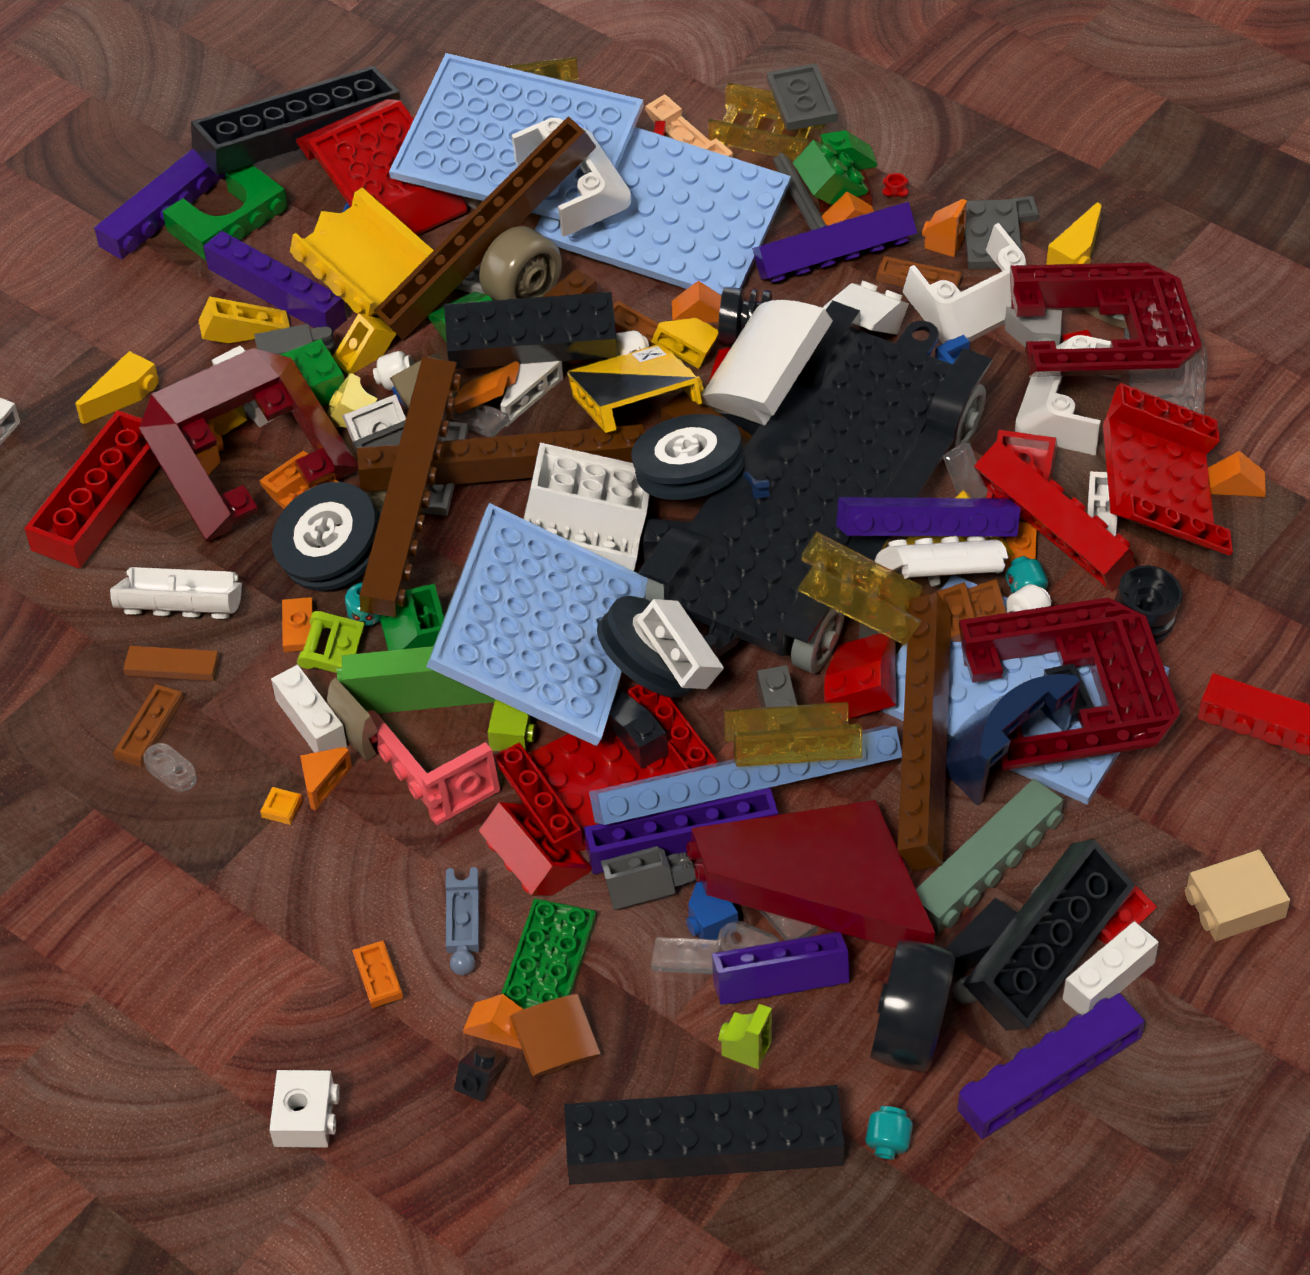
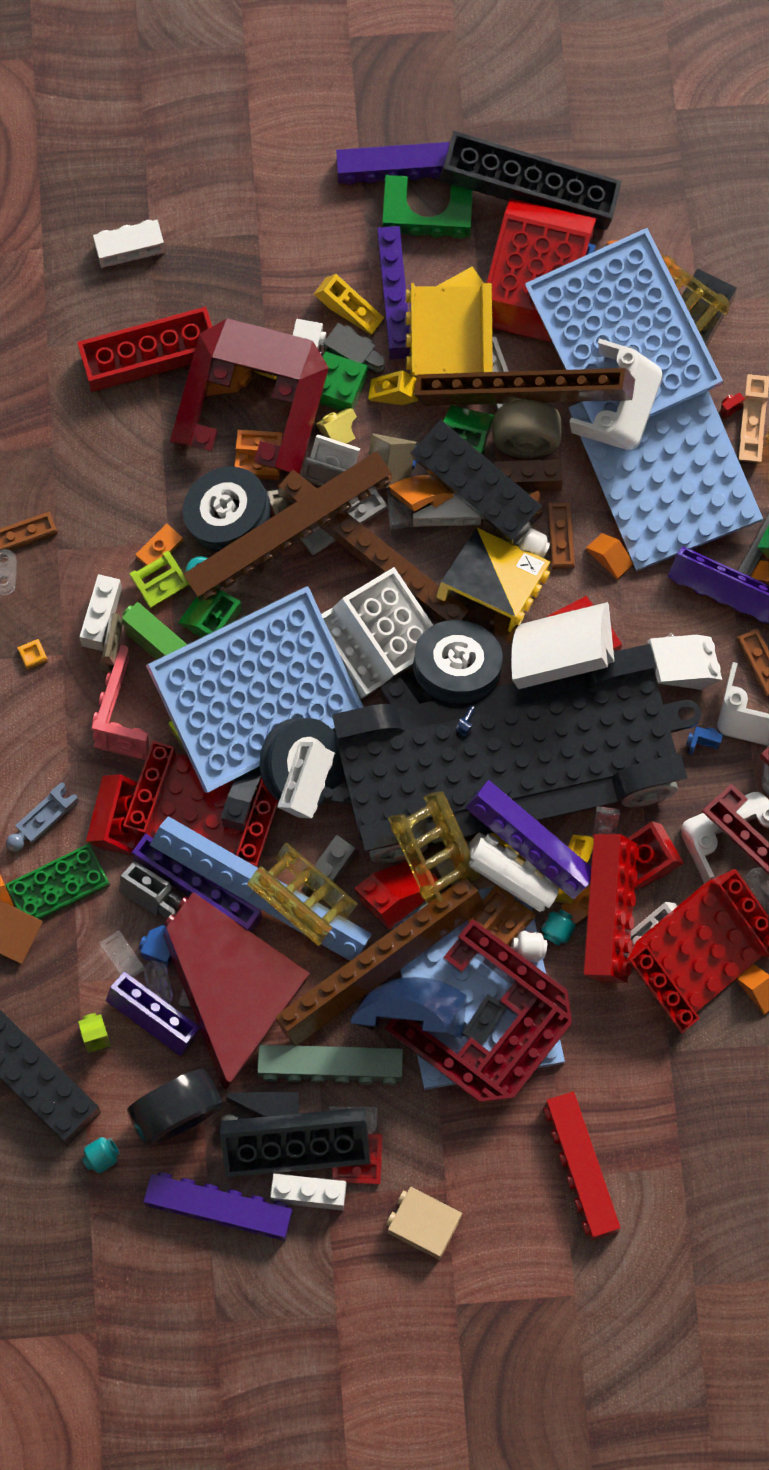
camera: 45 degrees right, 20 degrees up
(120, 387) = (236, 284): yellow slope -> none
(171, 663) = (72, 505): dark orange tile -> none
(177, 591) = (118, 463): white container -> none
(324, 772) = (67, 658): orange slope -> none
(389, 365) = (390, 424): white head -> none
(687, 339) = (570, 574): yellow slope -> none
(736, 312) = (614, 588): black wheel -> none
(1153, 594) = (606, 1008): black wheel -> none

